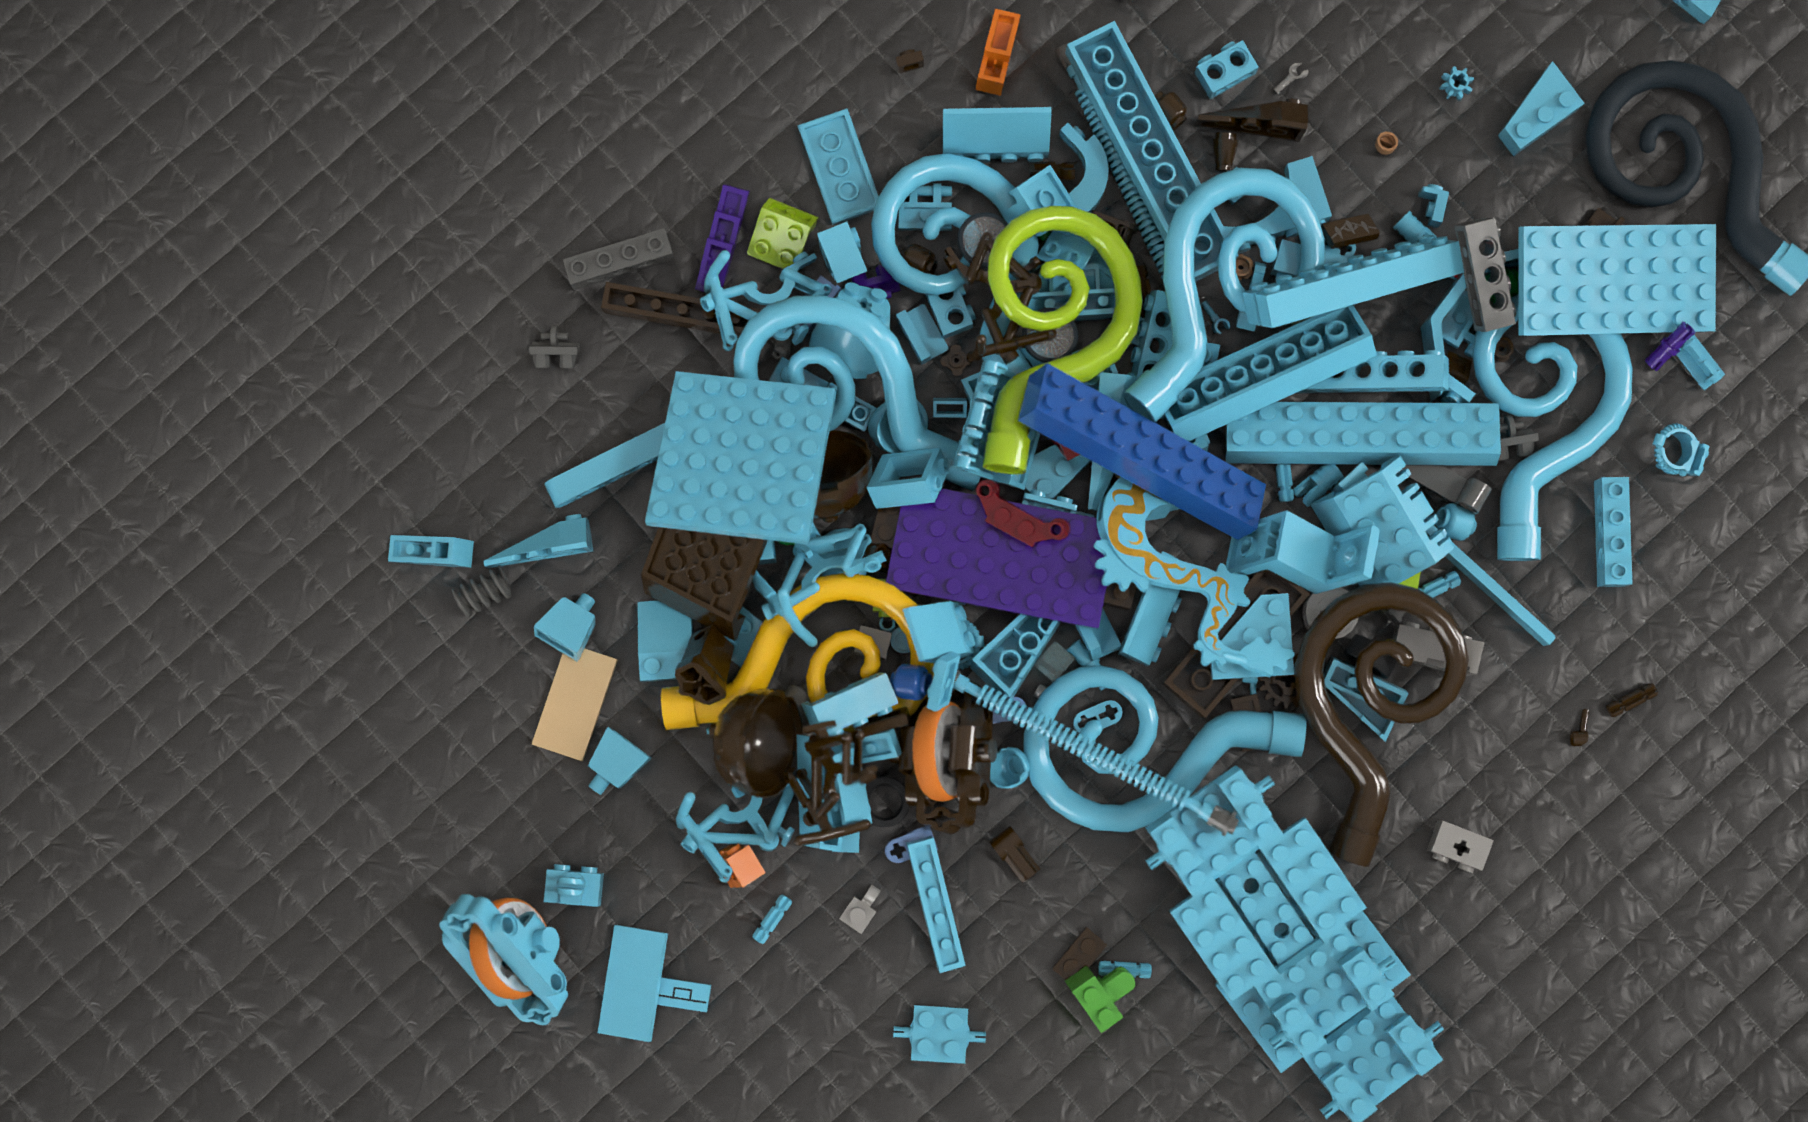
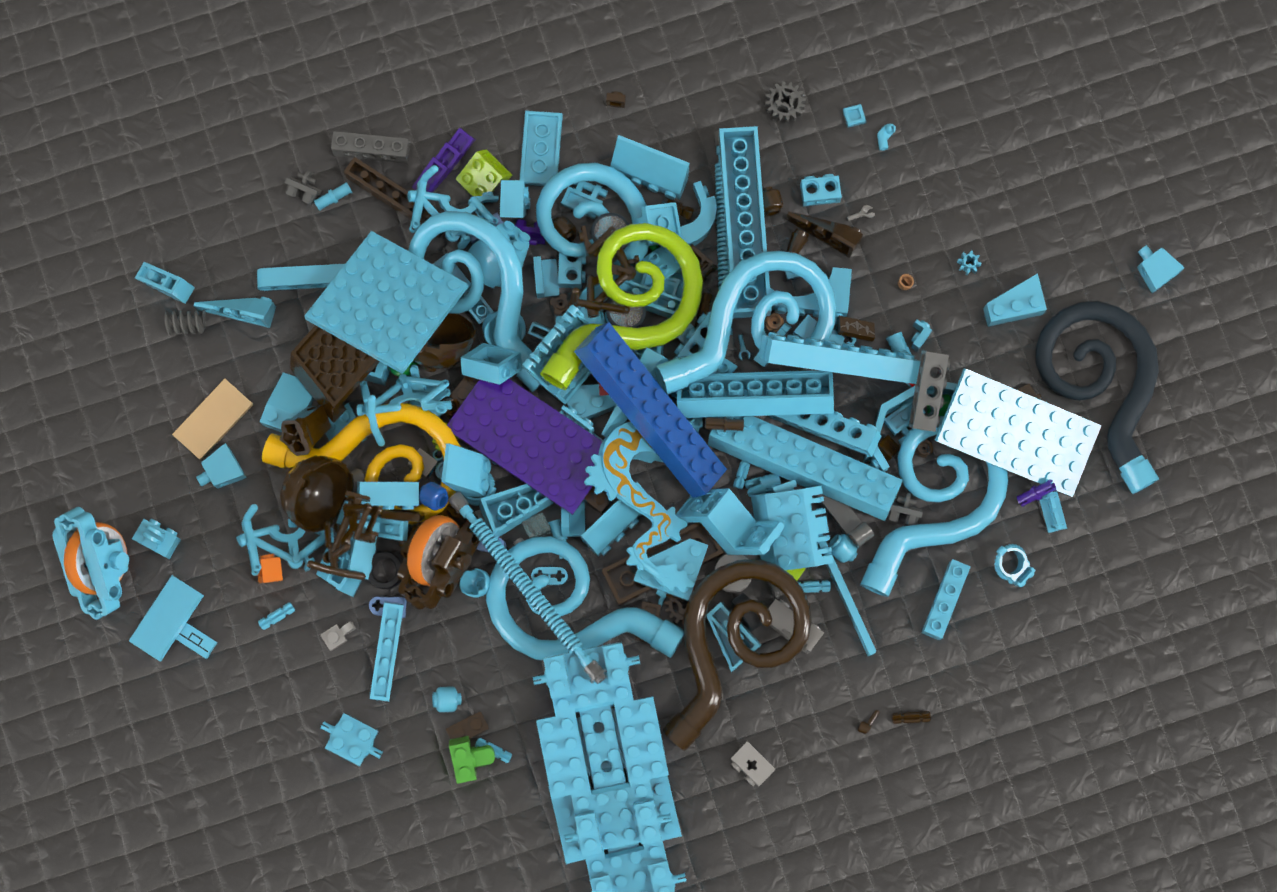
camera: 20 degrees right, 5 degrees down
(568, 626) = (230, 367): medium azure torso -> none
(598, 344) = (333, 196): none -> medium azure pin
(943, 681) = (452, 503): medium azure plate -> none
(997, 52) = (676, 118): orange slope -> none
(1011, 850) = (453, 638): dark brown piece -> none
(1017, 521) = (548, 420): dark red plate -> none
(1037, 931) = (446, 699): none -> medium azure head
(1242, 428) = (724, 424): none -> dark brown axle

